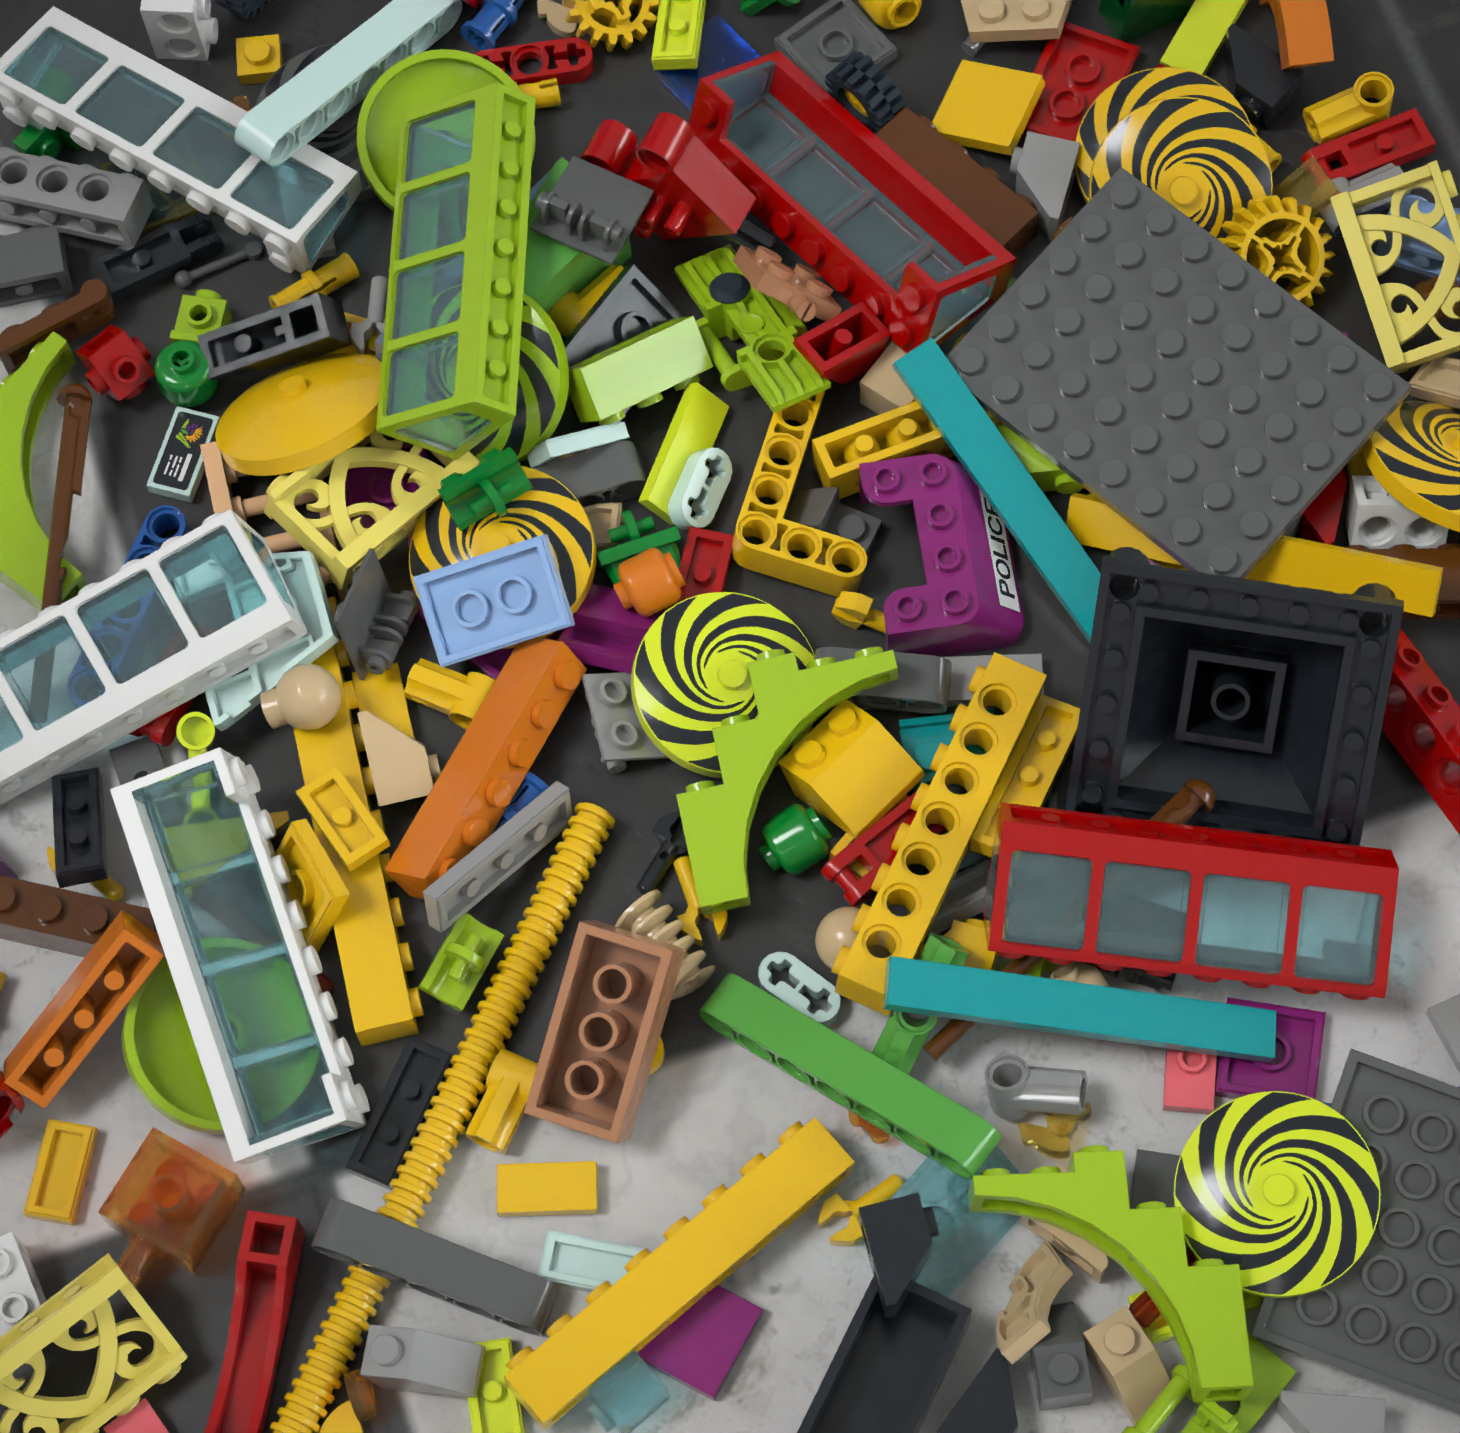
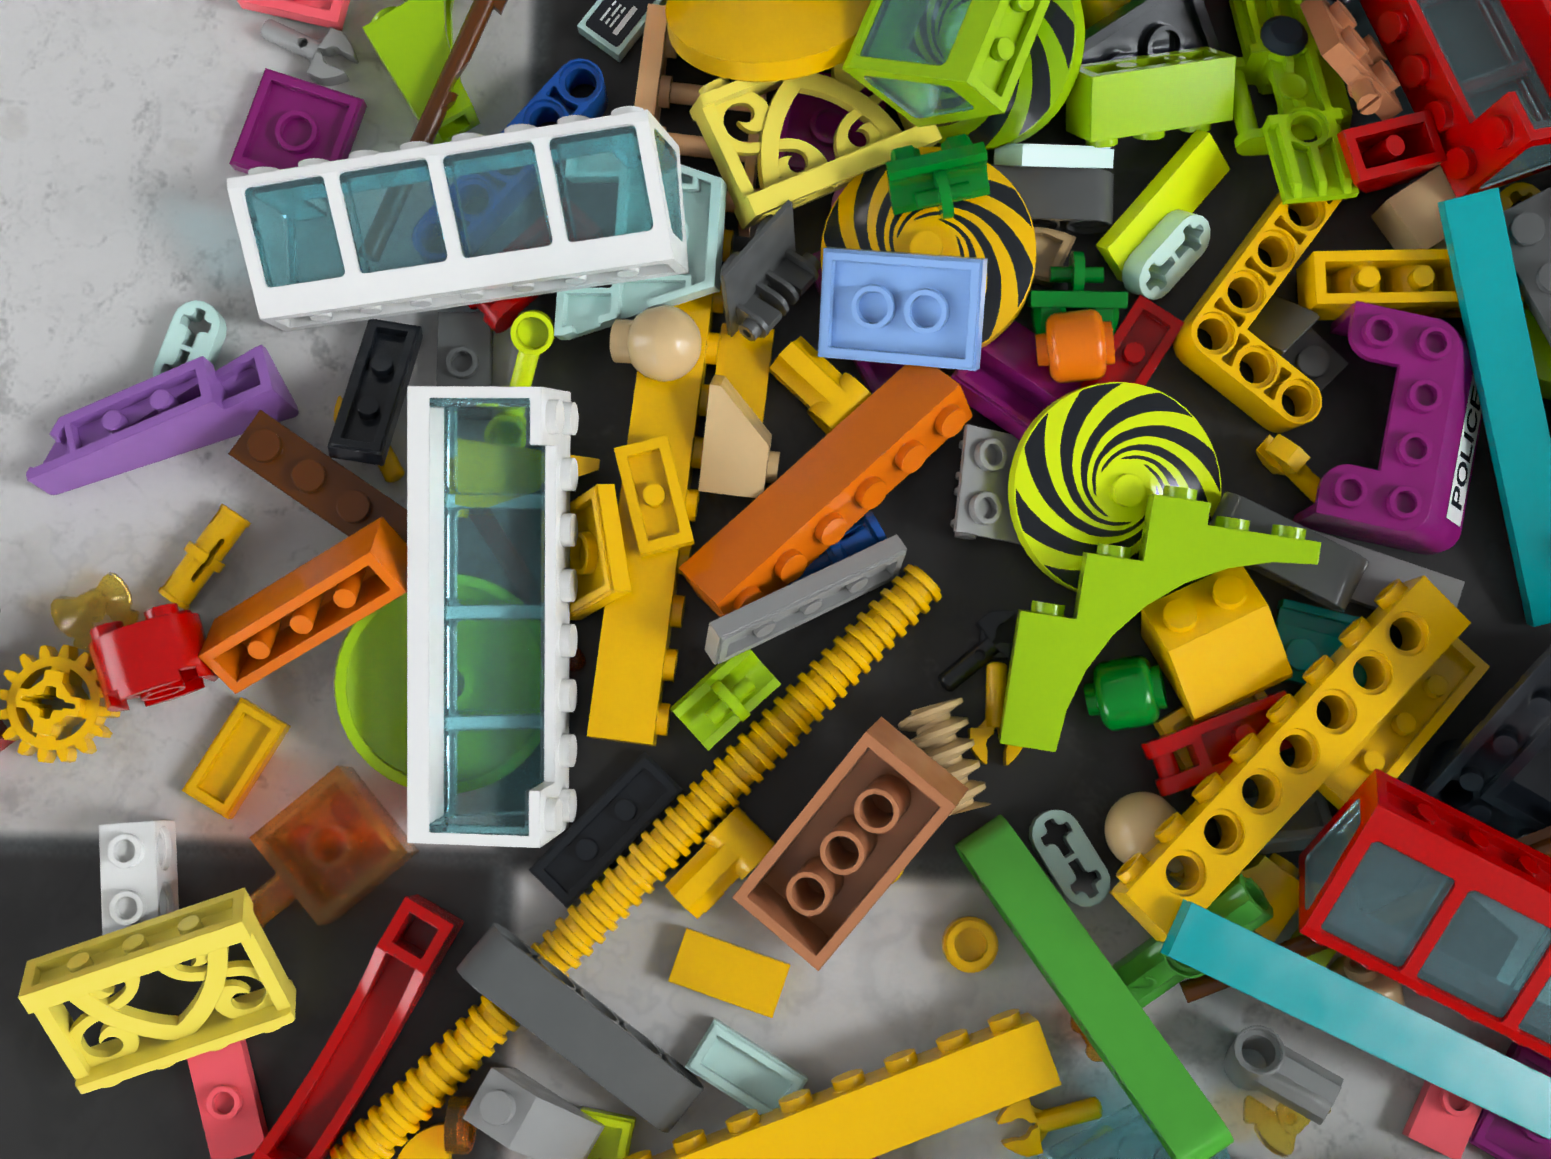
camera: 15 degrees right, 15 degrees up
(742, 1091) = (969, 944): none -> yellow tile

